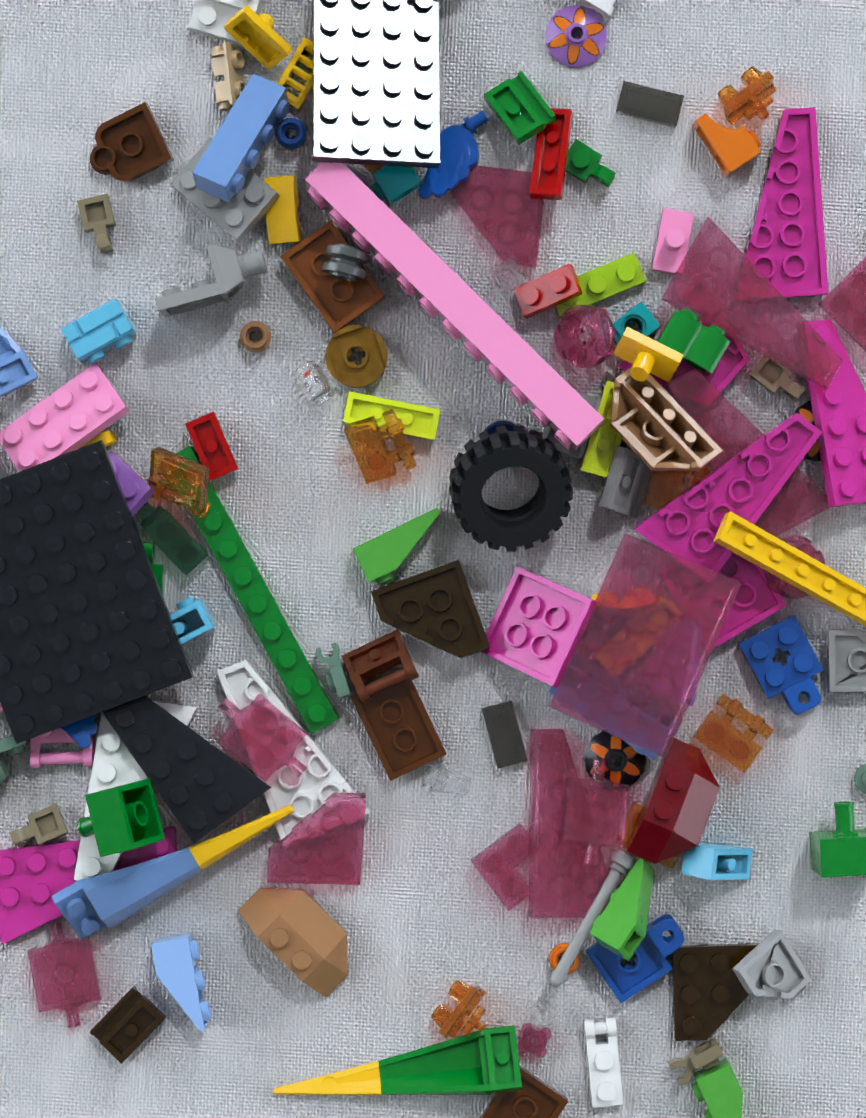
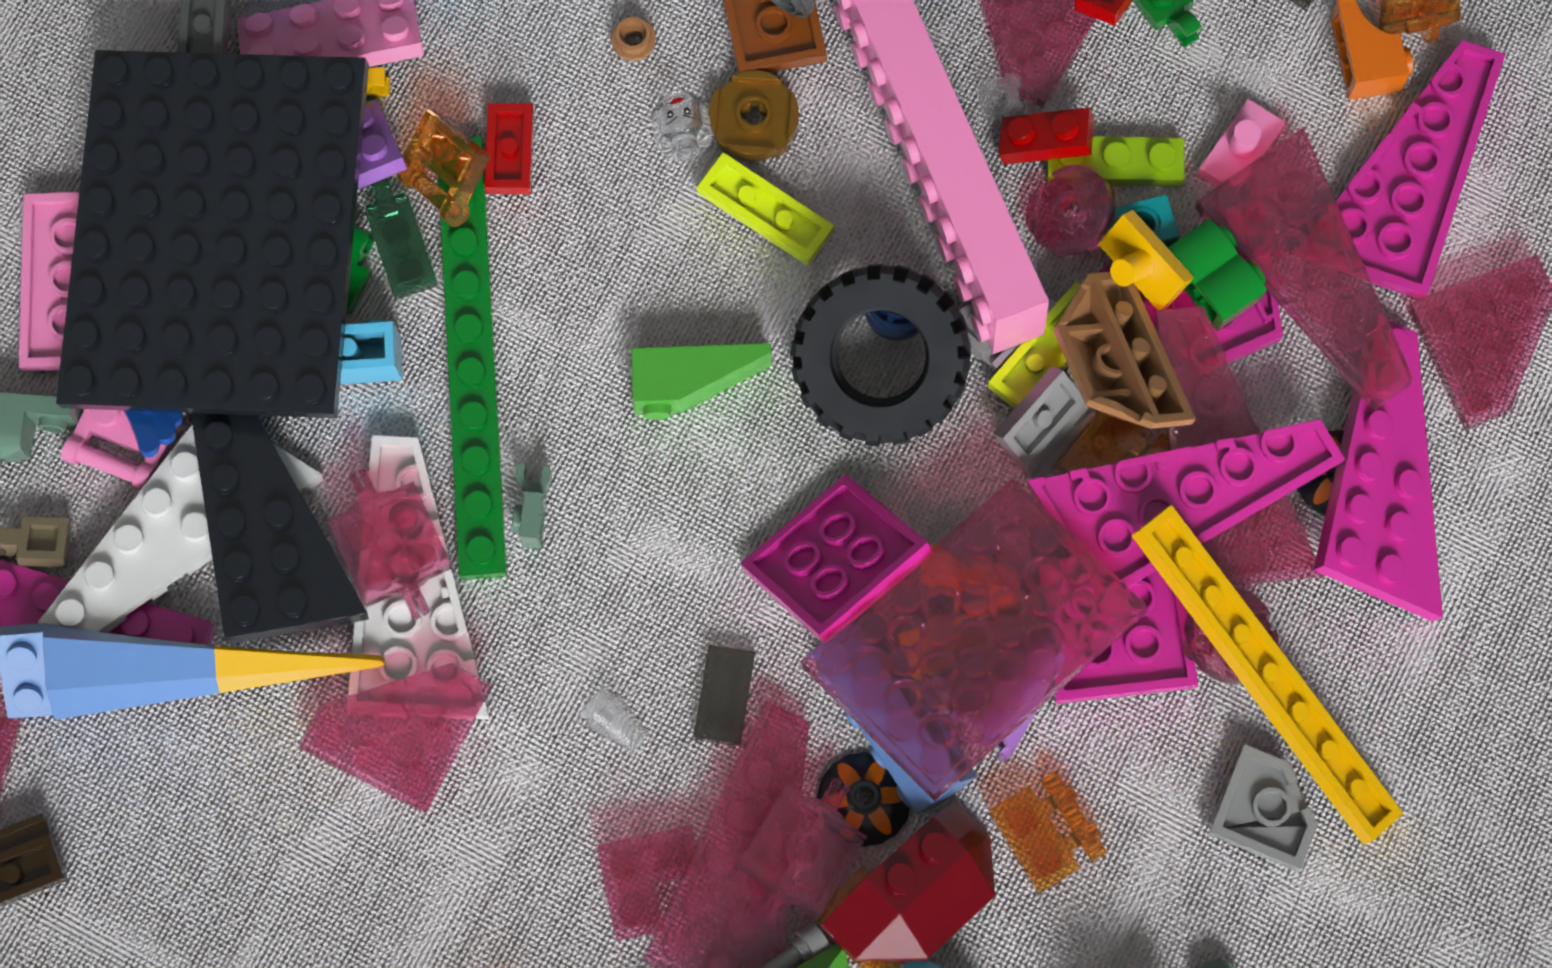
camera: 30 degrees right, 15 degrees down
(122, 818) = (146, 555): green brick -> none
(179, 973) = (117, 820): light blue slope -> none
(299, 935) = (309, 850): medium nougat wedge -> none
(371, 450) = (717, 236): clear orange plate -> none
(376, 658) = (595, 511): copper plate -> none
(400, 729) = (583, 616): reddish brown plate -> none
(435, 609) = (705, 482): dark brown plate -> none
(774, 376) = (1310, 372): dark tan plate -> none
(787, 679) = (1161, 791): blue plate -> none

